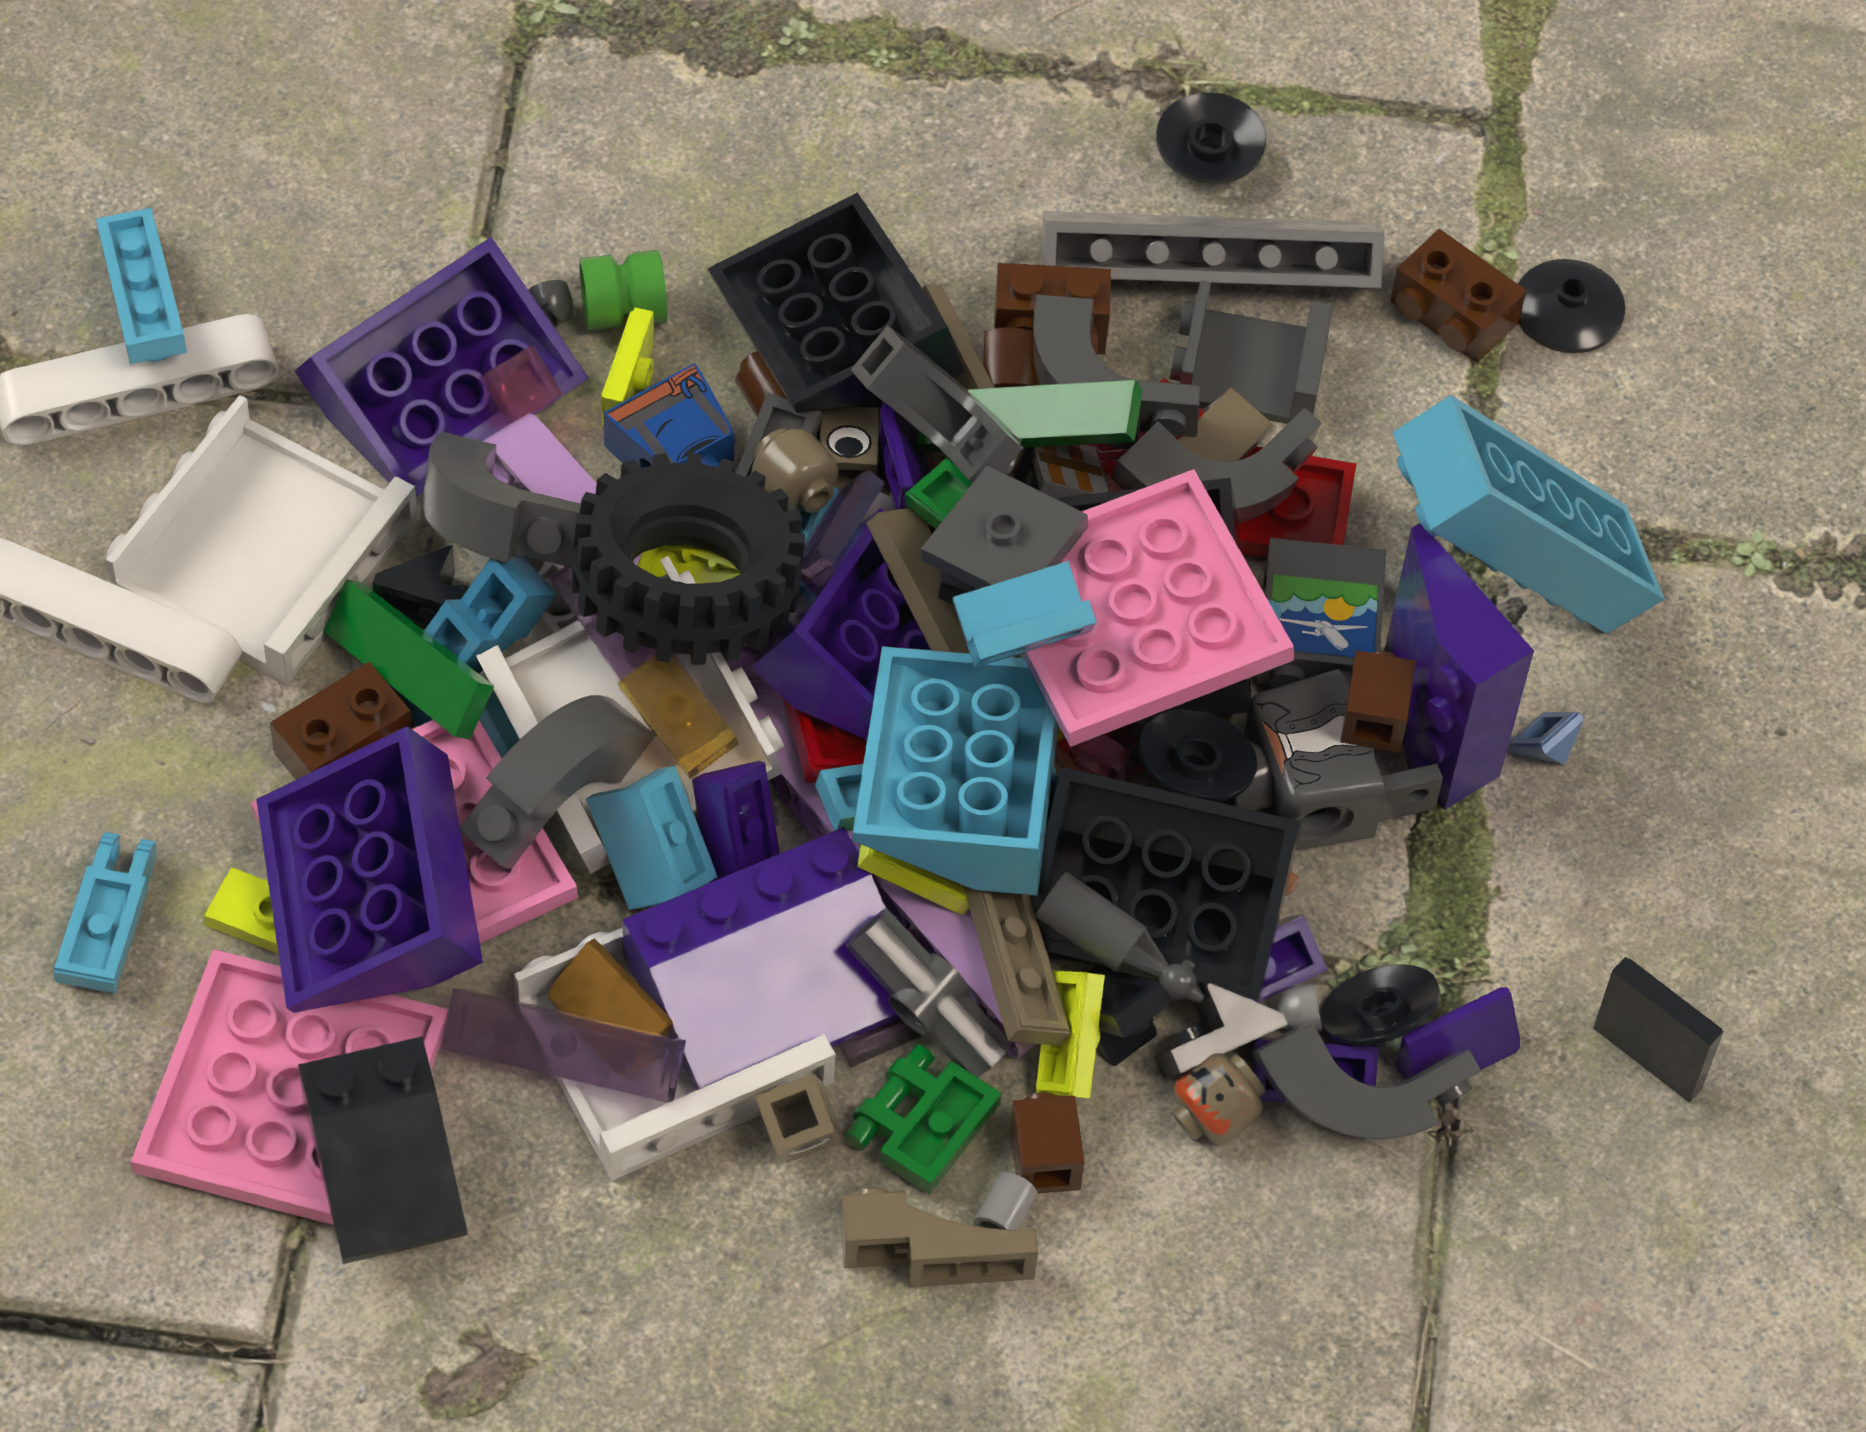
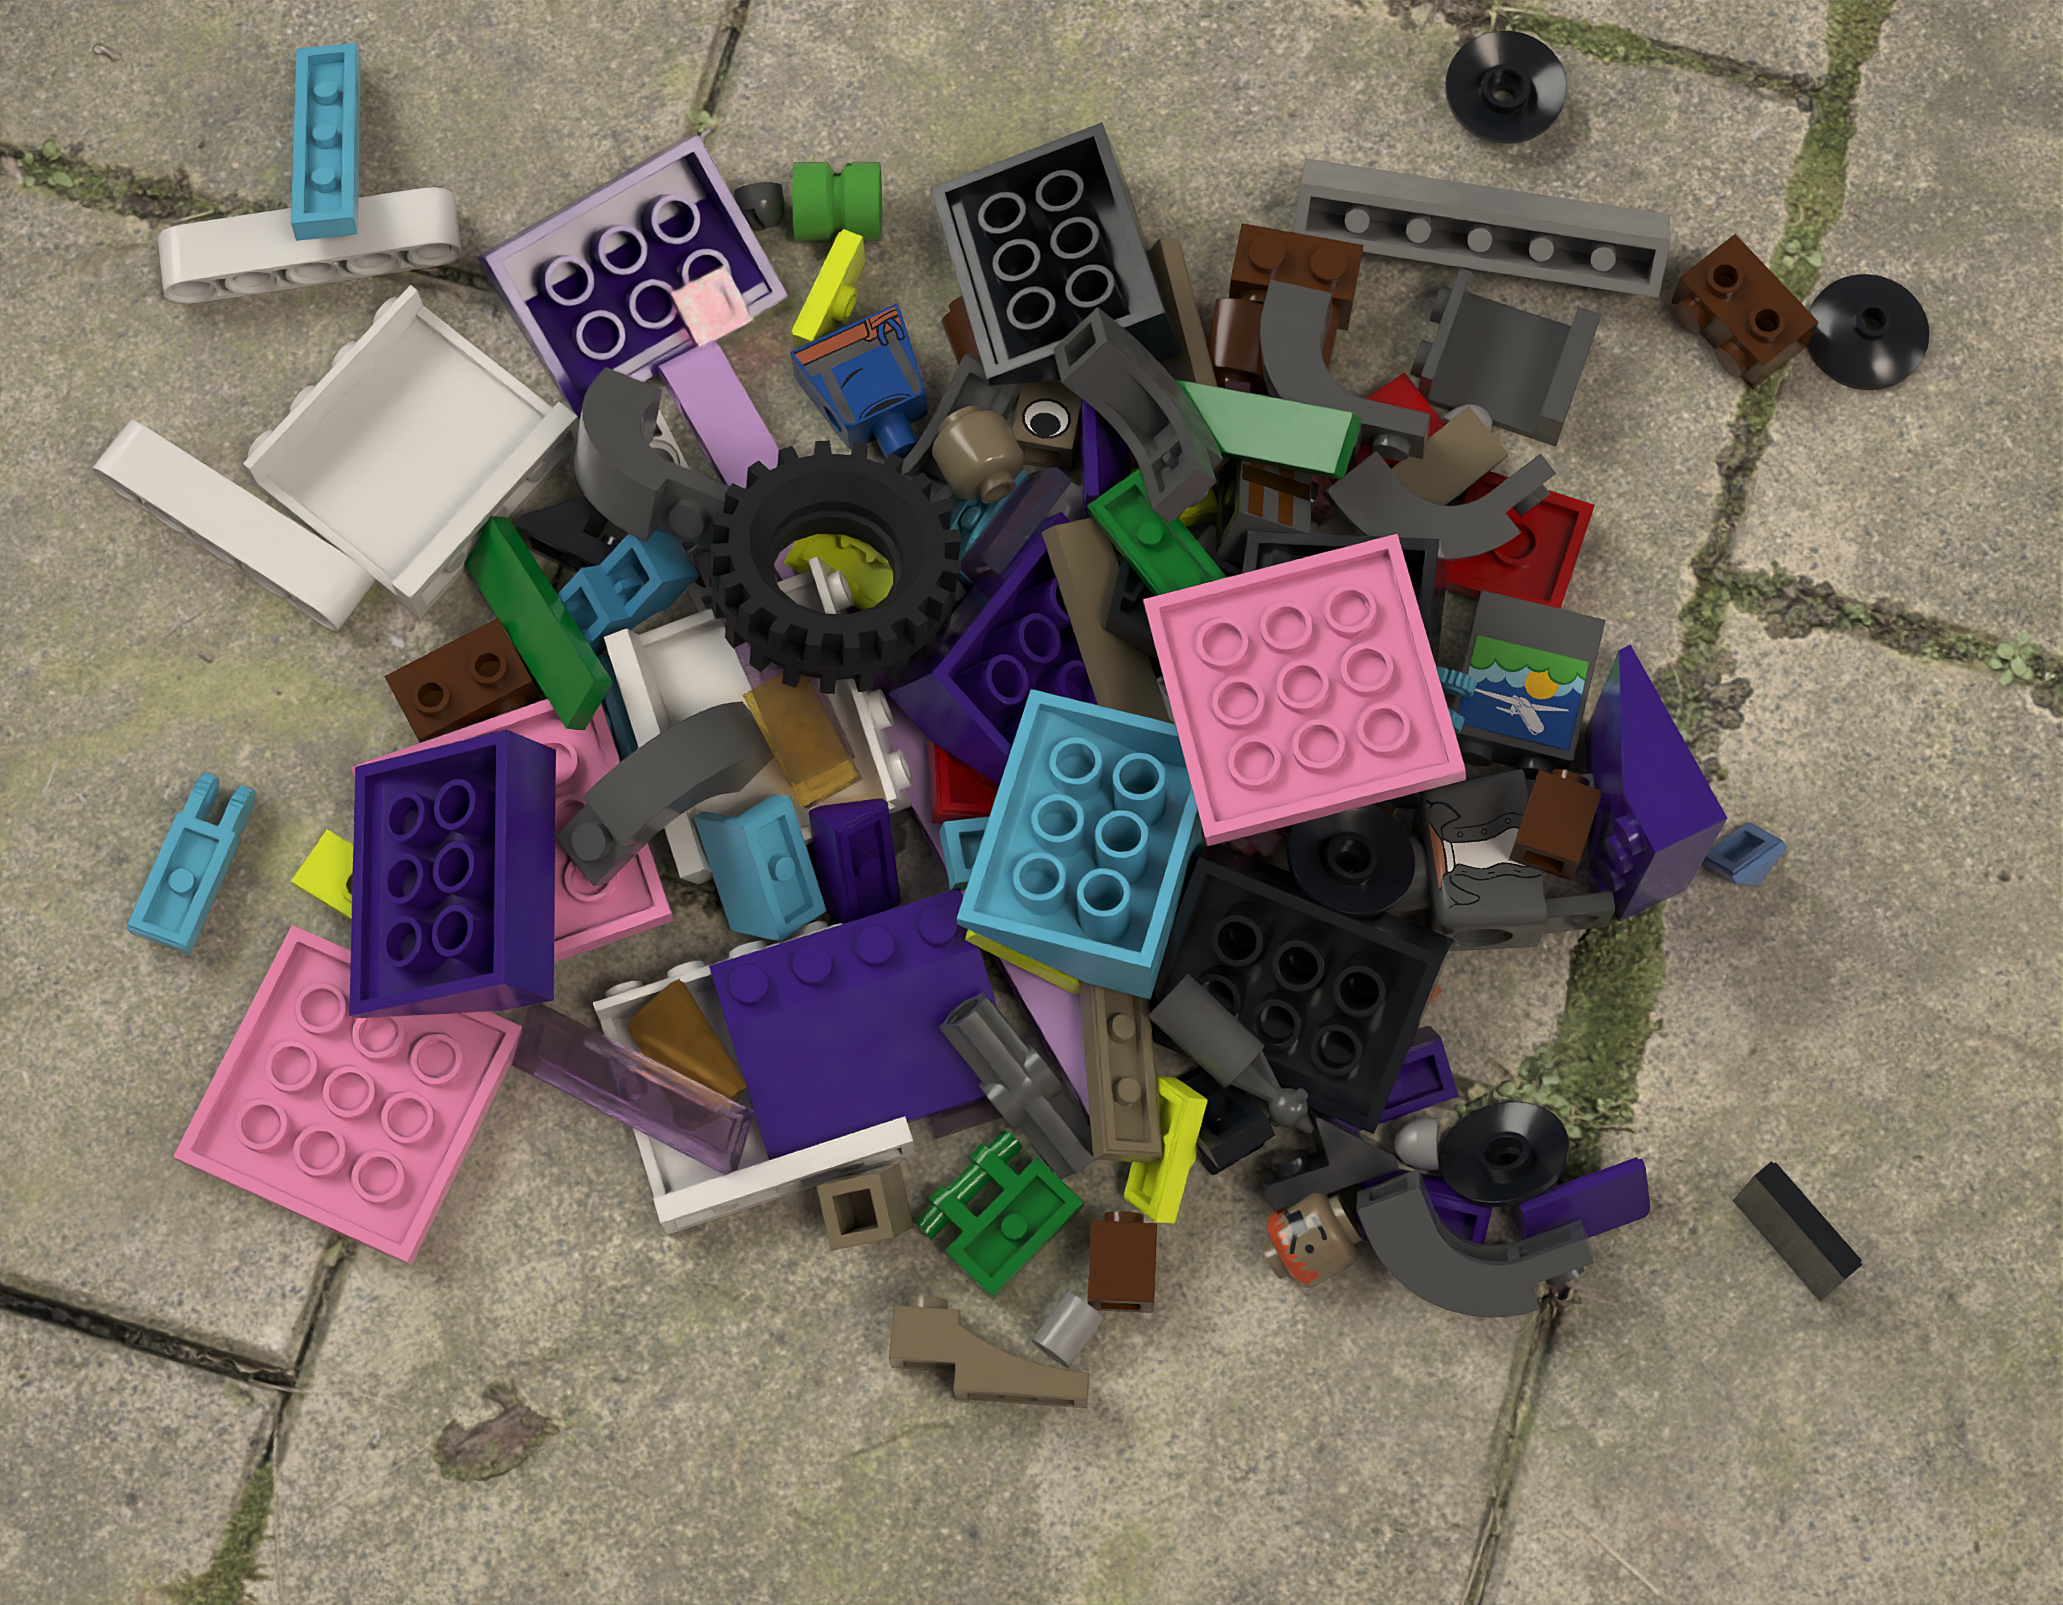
camera: 15 degrees right, 15 degrees up
(382, 1150) = (424, 1189): black slope -> none
(1002, 532) = (1176, 591): dark grey plate -> none
(1023, 614) = (1177, 694): medium azure panel -> none
(1526, 515) = (1756, 627): medium azure brick -> none

